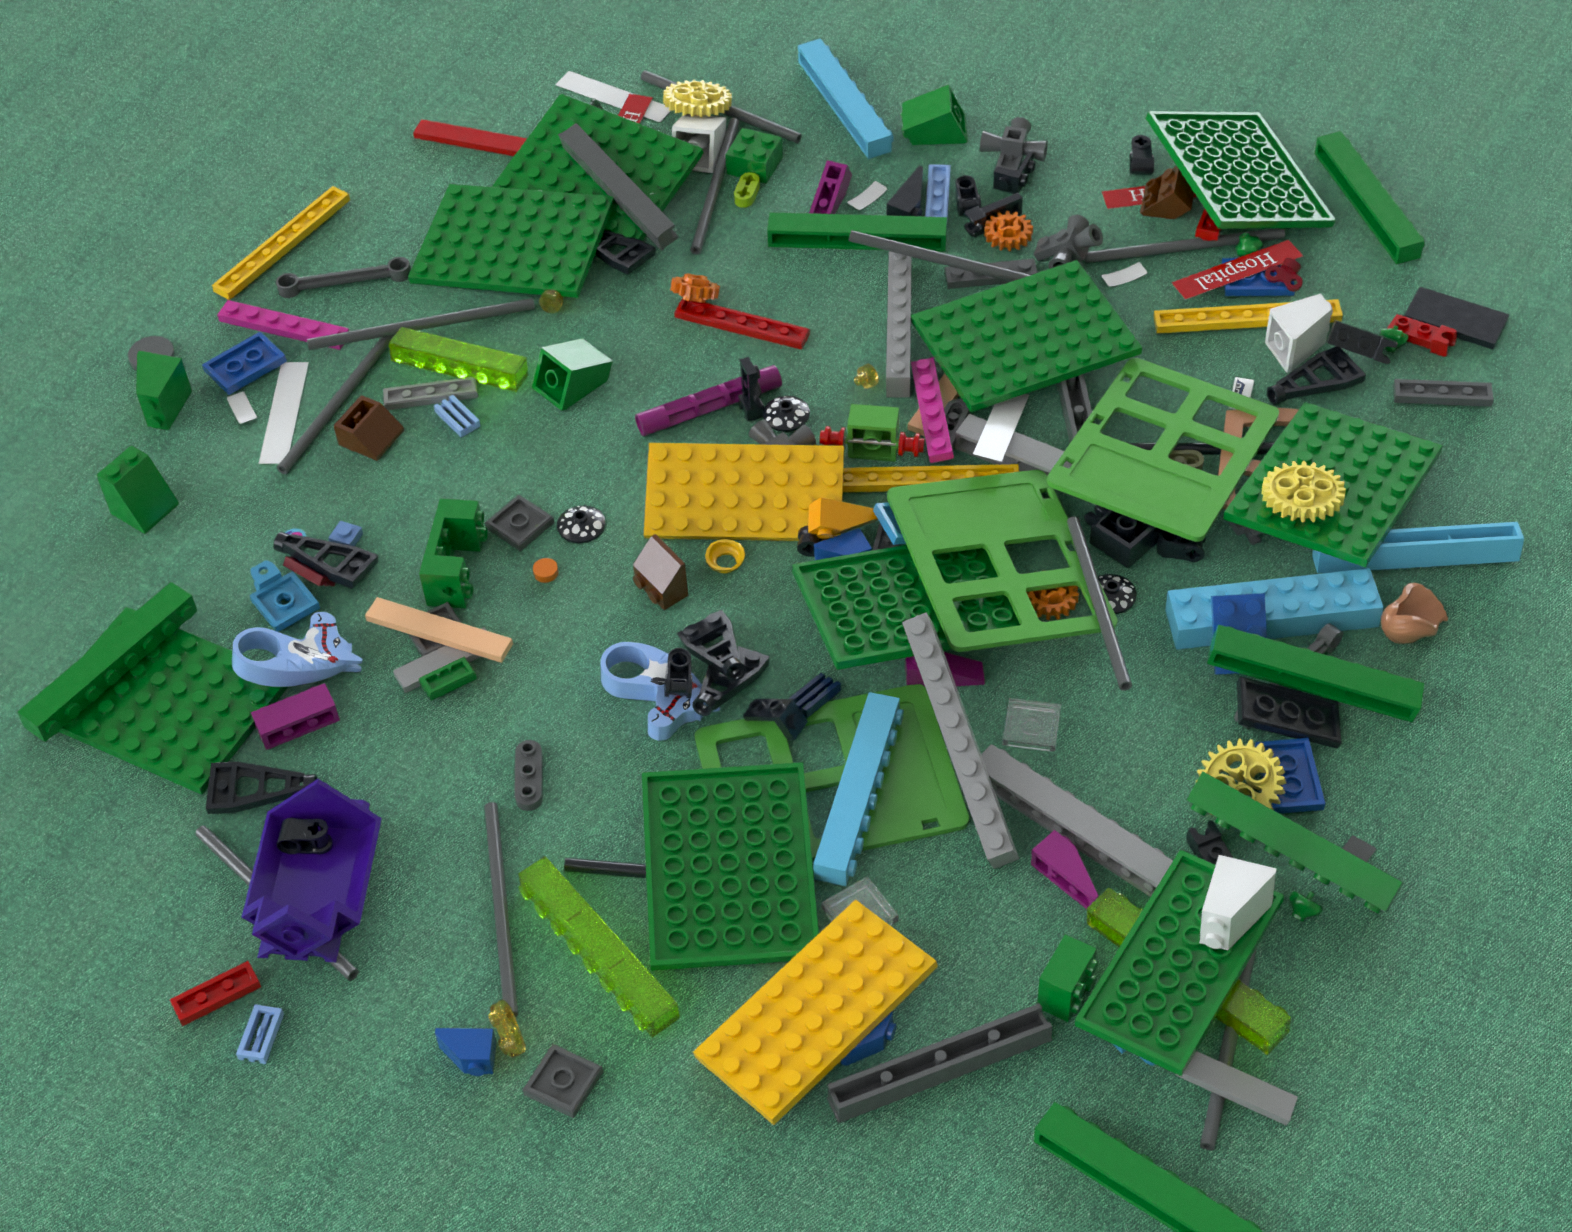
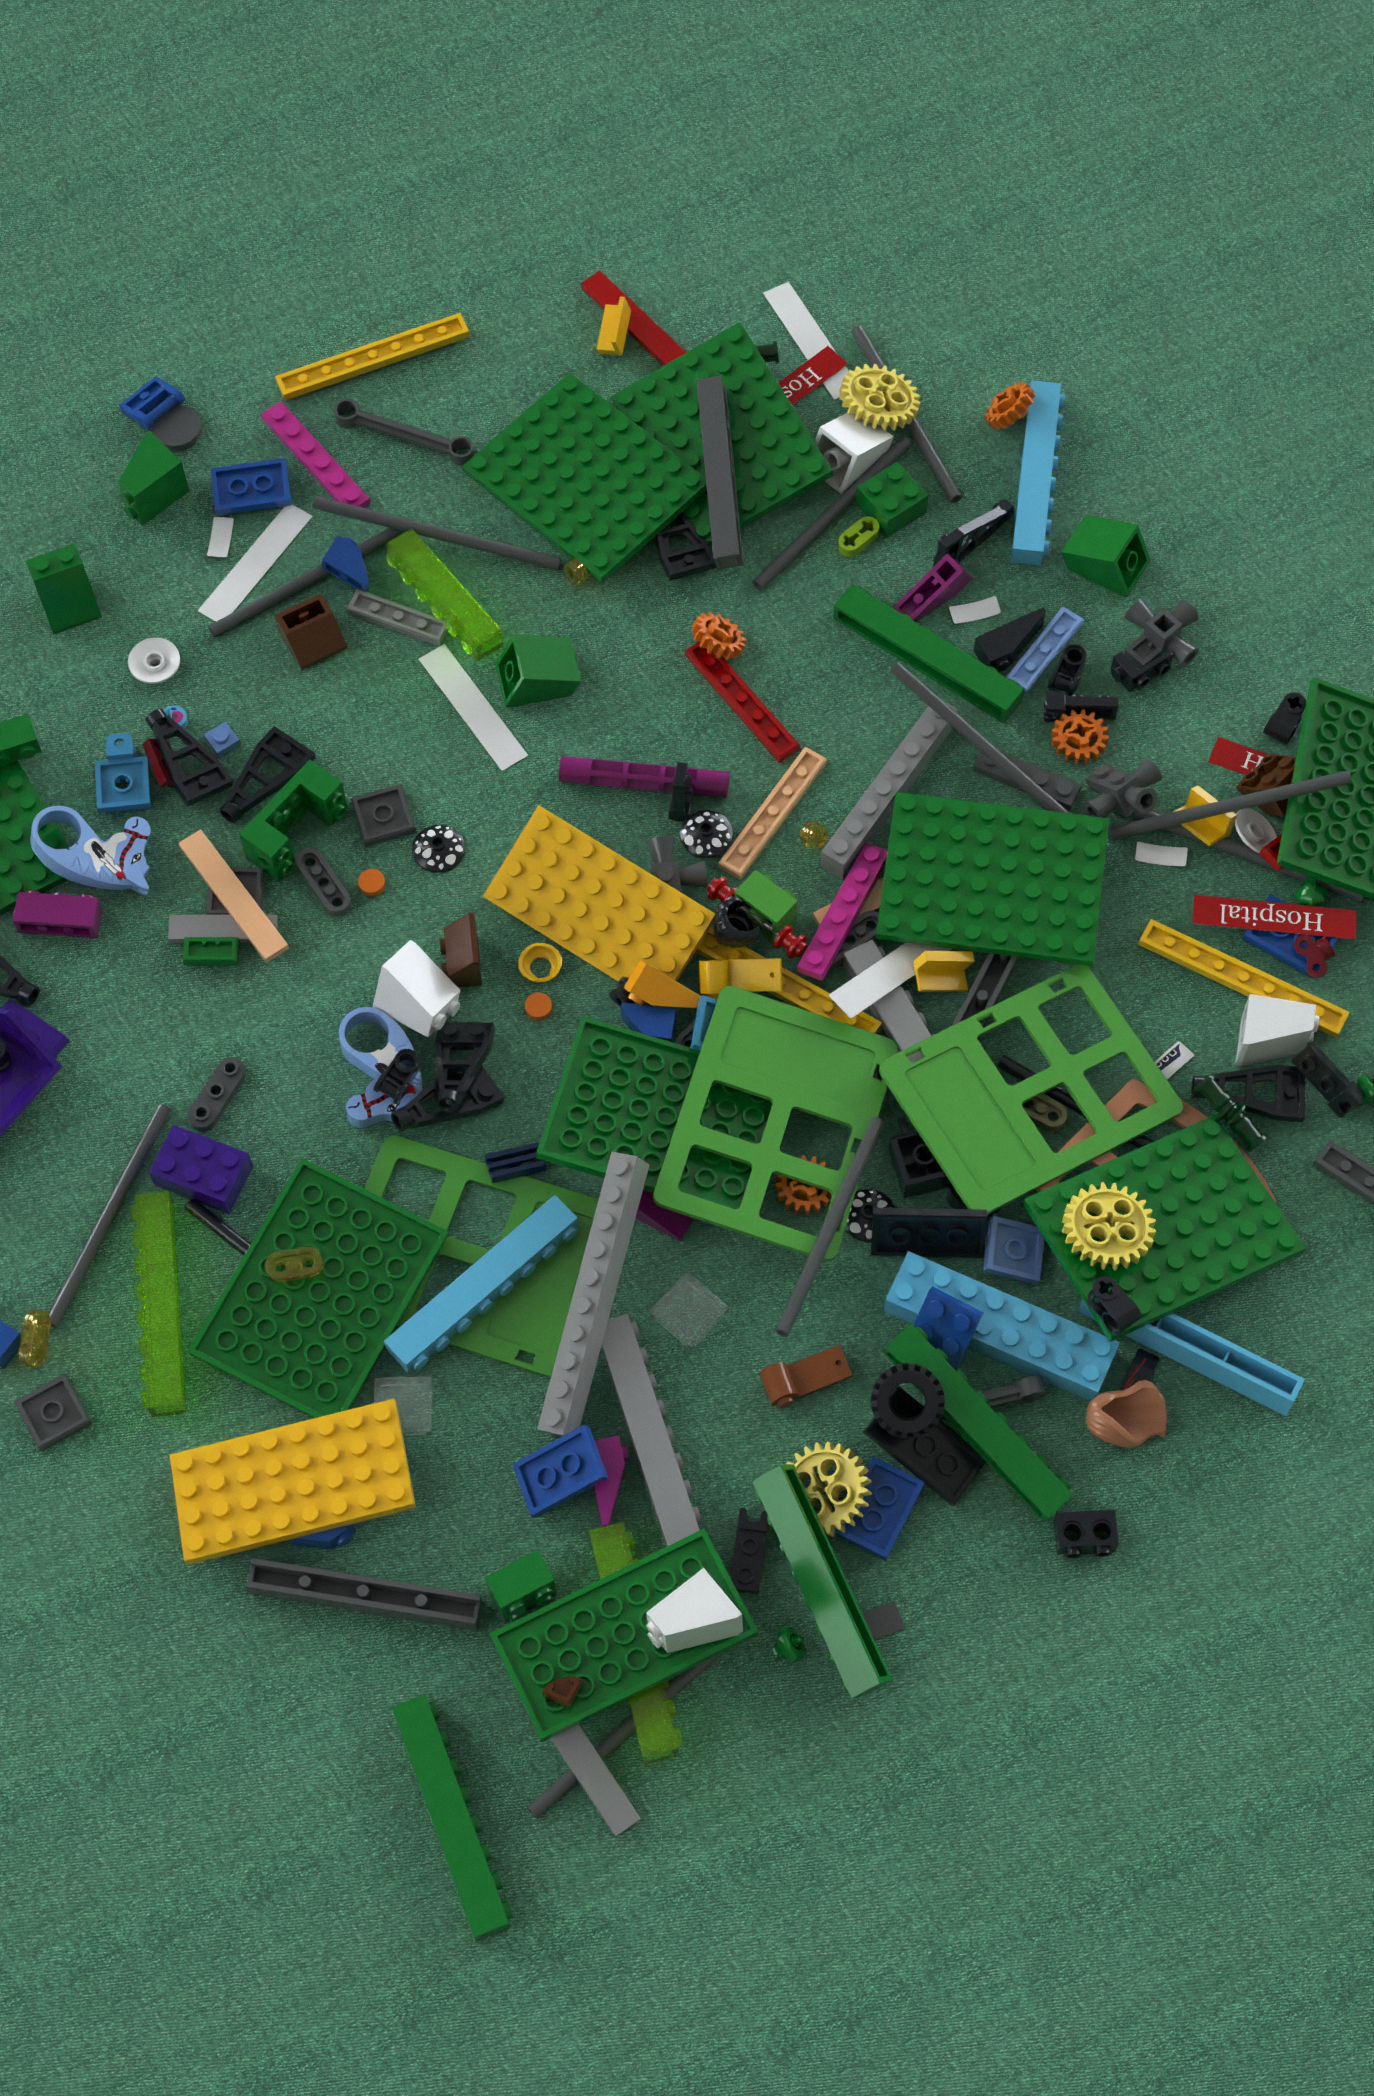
camera: 30 degrees right, 15 degrees up
(116, 339) = (148, 398): none -> blue plate
(249, 507) = (151, 652): none -> white dish
(366, 372) = (346, 563): none -> blue slope
(405, 517) = (281, 749): none -> black plate
(440, 411) = (407, 679): light blue tile -> none
(461, 146) = (614, 328): none -> yellow panel
(519, 590) = (321, 873): none -> dark grey plate
(536, 422) = (473, 707): none -> white sticker
(558, 829) = (201, 1169): none -> dark purple brick
(646, 614) = (416, 991): none -> white slope
(693, 848) = (294, 1262): none -> clear yellow plate
(746, 585) = (538, 1006): none -> orange tile
(781, 711) = (464, 1166): black bracket -> none
(794, 65) = (1009, 405): none -> orange gear
(823, 379) = (772, 813): none -> light nougat tile
(830, 147) = (976, 530): none -> black plate
(859, 454) = (733, 926): none -> black hair
(901, 474) = (746, 974): none -> yellow door
(1029, 880) = (560, 1471): none -> blue plate
(1032, 409) = (942, 971): none -> yellow panel
(1138, 233) = (1209, 829): none -> yellow panel
(1158, 208) = (1231, 804): none -> dark grey piece
(1158, 719) = (793, 1381): none -> dark orange door
(1171, 1023) = (563, 1690): none -> reddish brown tile
(1175, 568) = (928, 1232): none -> black tile
(1177, 229) = (1254, 829): none -> white dish
(1238, 557) = (1014, 1250): none -> medium blue tile
(1271, 656) = (926, 1418): none -> black tyre
(1314, 393) = (1231, 1112): none -> dark green piece
(1355, 535) = (1112, 1307): none -> black piece
(1392, 587) = (1140, 1369): none -> black sticker
(1451, 707) = (1084, 1524): none -> black brick

